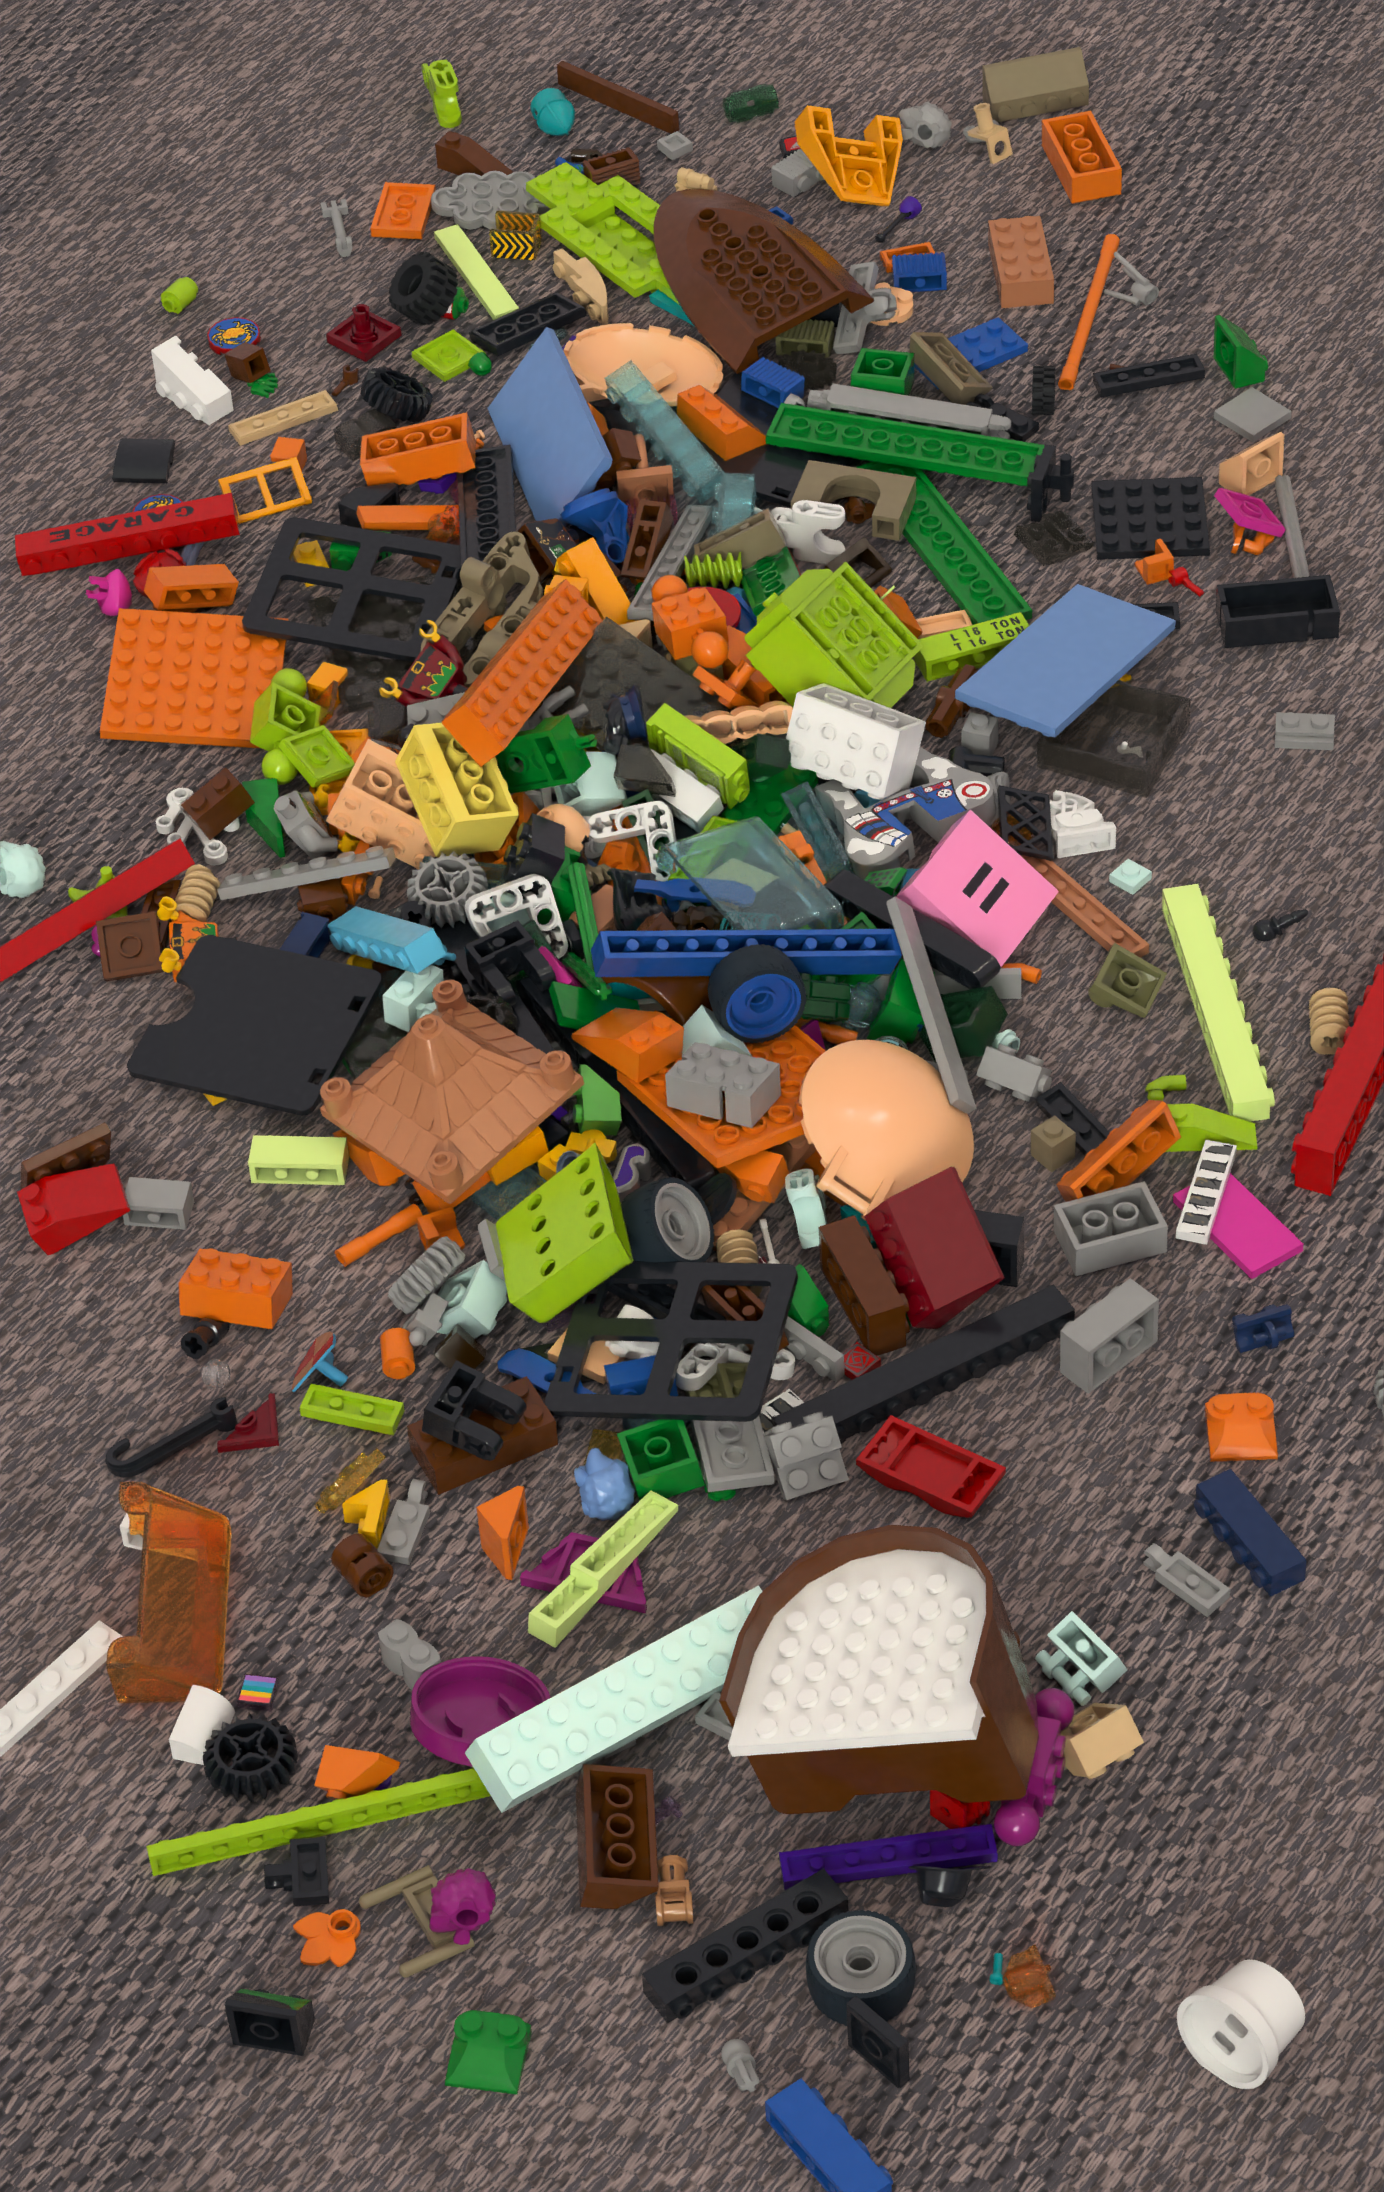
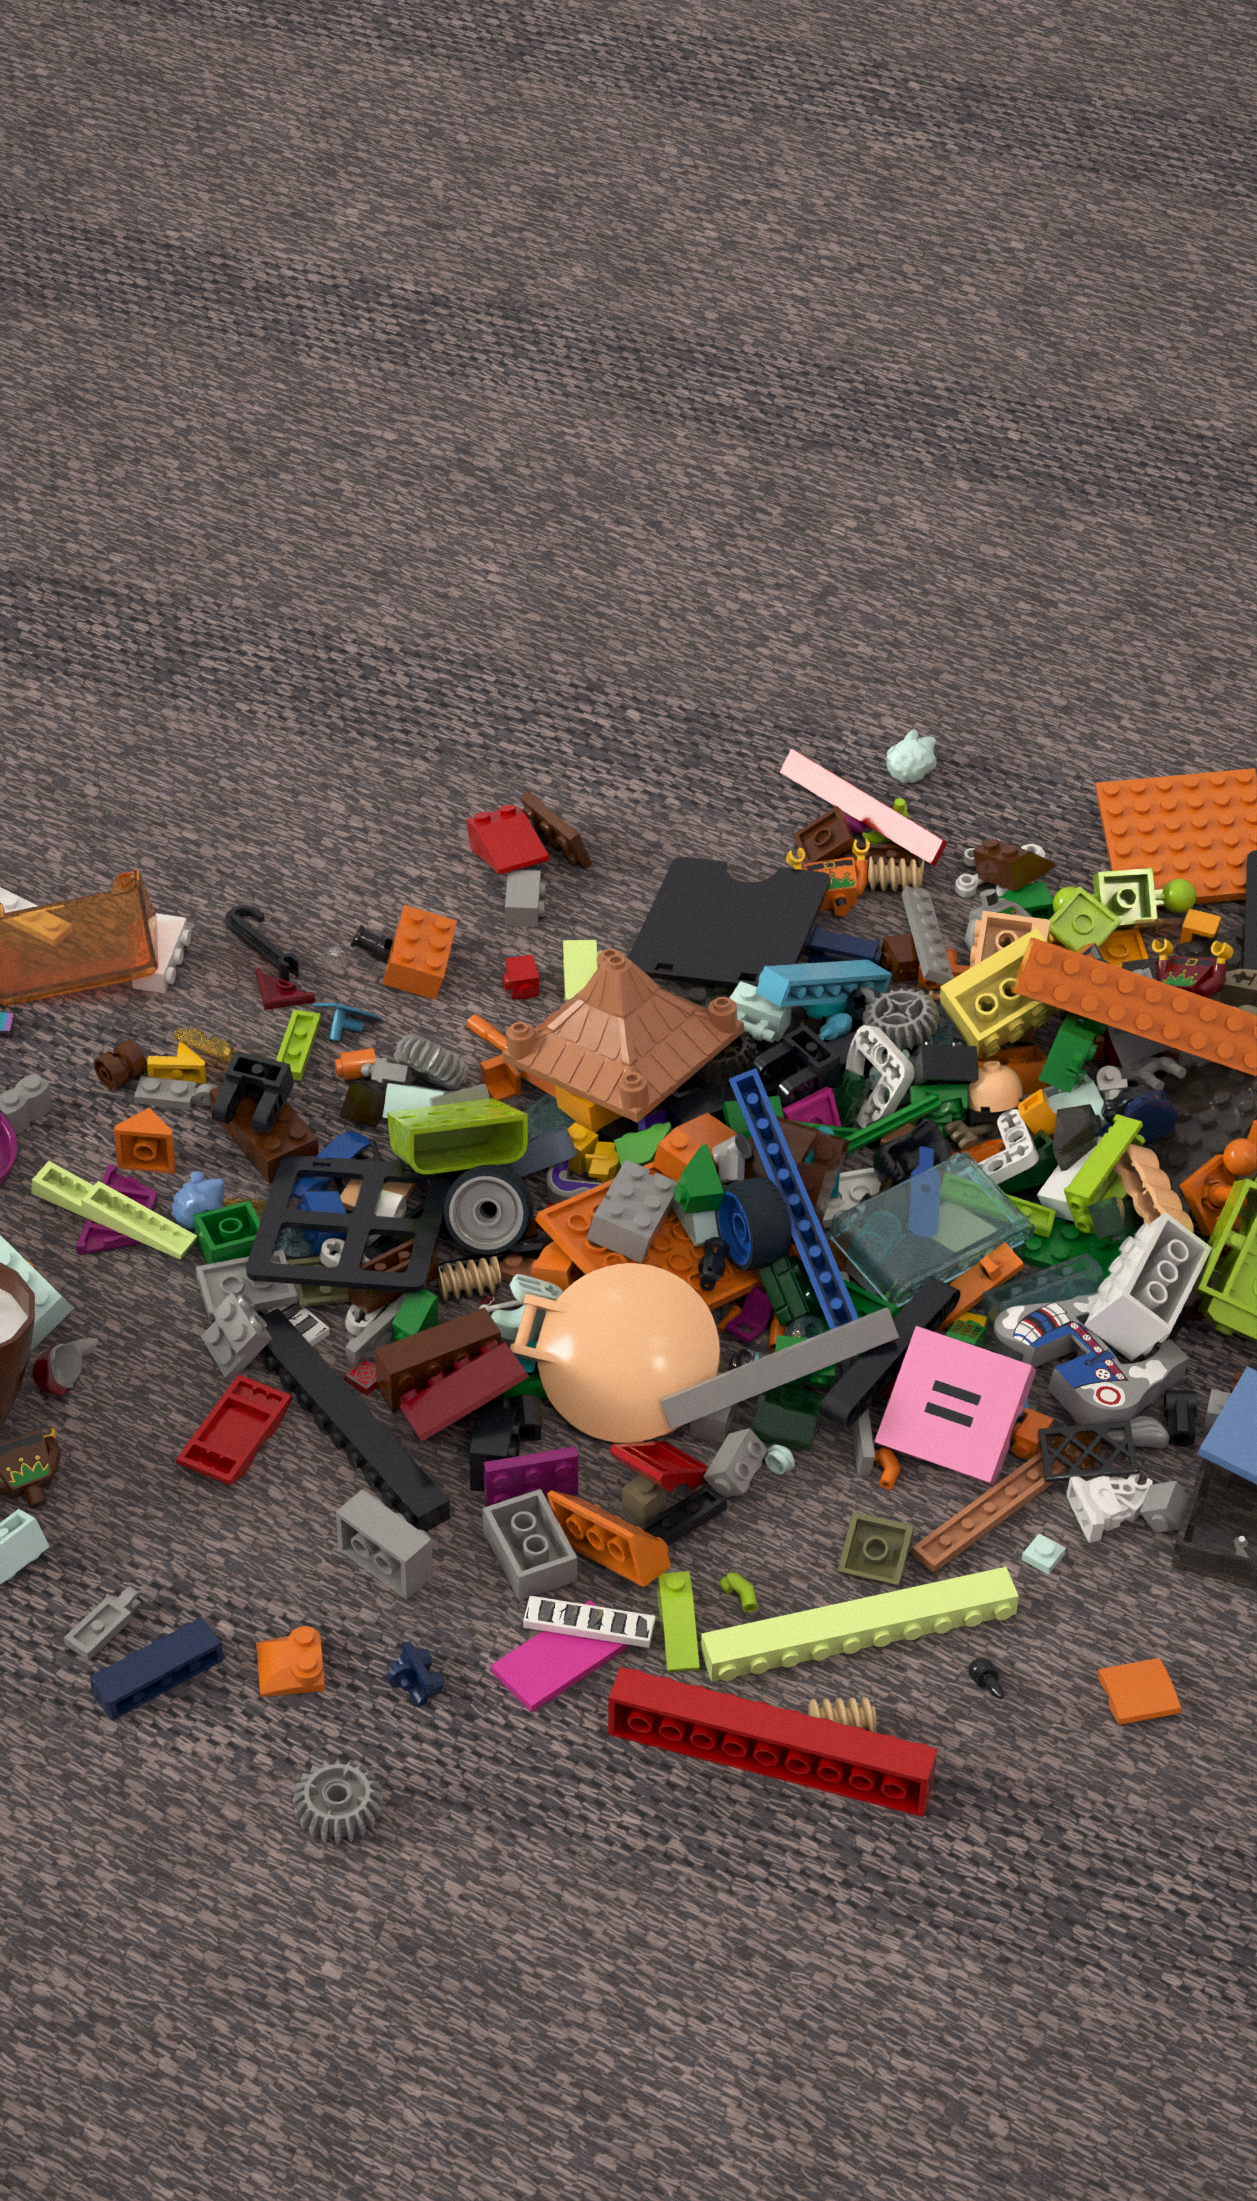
camera: 80 degrees right, 0 degrees up
(287, 1208) = (521, 977): none -> red brick
(600, 797) = (1037, 1113): none -> light orange panel
(671, 998) = (731, 1158): none -> light grey piece
(707, 1018) = (699, 1184): none -> green slope
(786, 1042) = (712, 1264): none -> black piece
(1024, 1115) = (661, 1464): none -> red slope
(1032, 1210) = (527, 1473): none -> magenta plate
(1091, 783) = (1165, 1506): none -> light grey brick
(1296, 826) = (1139, 1691): none -> orange slope

